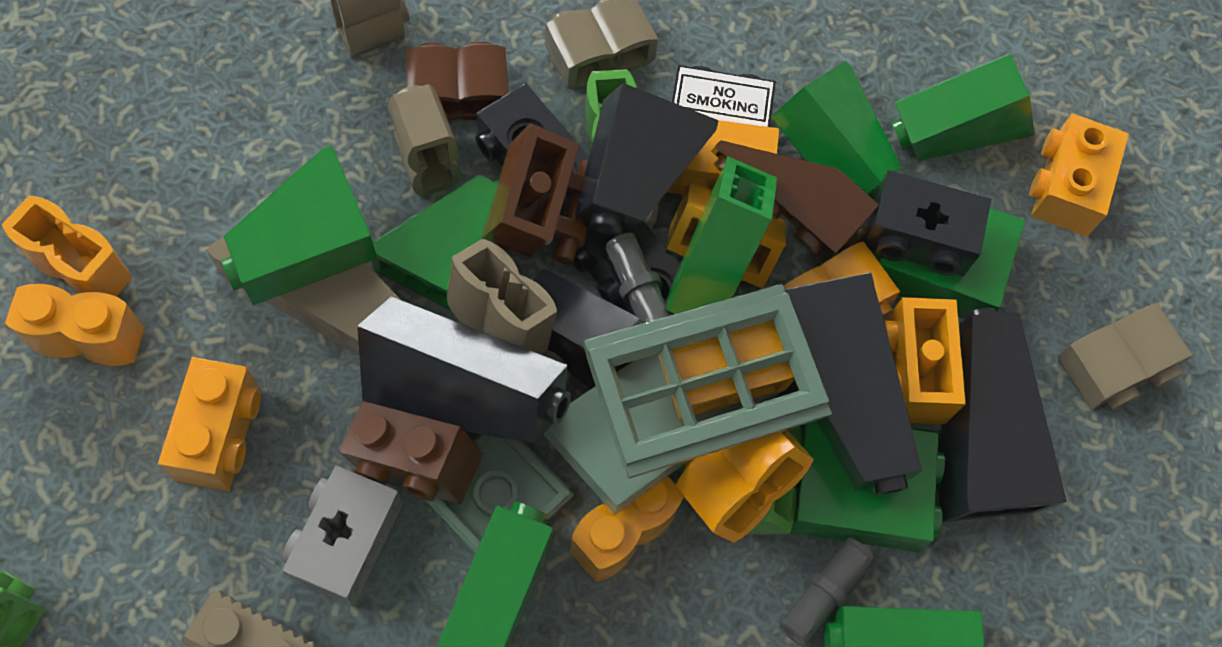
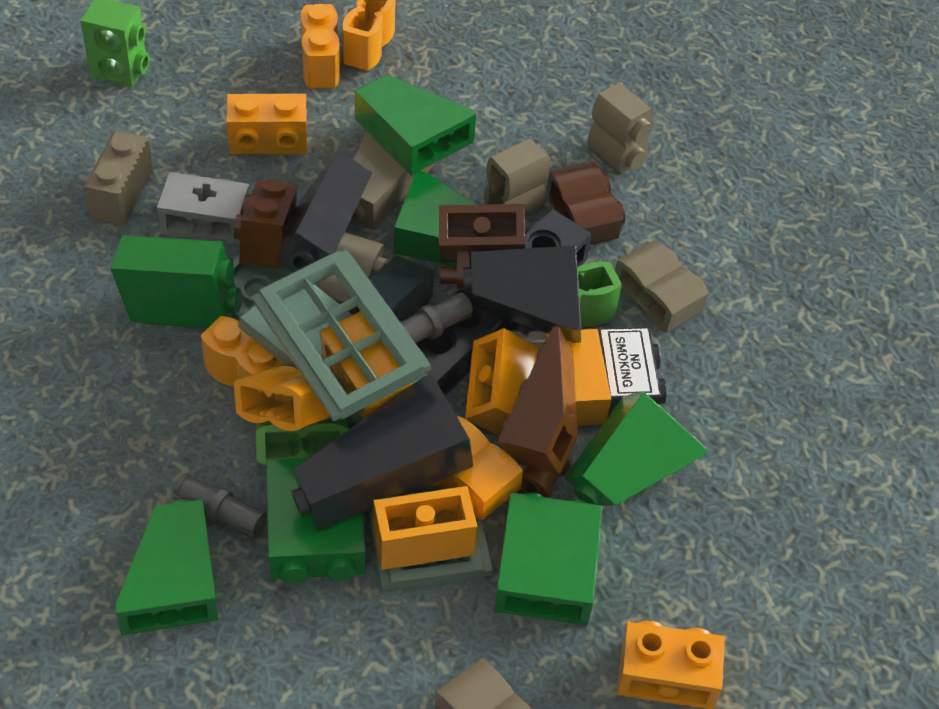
camera: 80 degrees right, 15 degrees down
(498, 301) = (385, 229): dark tan brick -> none
(724, 237) = (479, 344): green slope -> none
(927, 224) = (549, 508): black brick -> none
(966, 112) = (699, 560): green slope -> none
(1000, 439) = (387, 602): black slope -> none

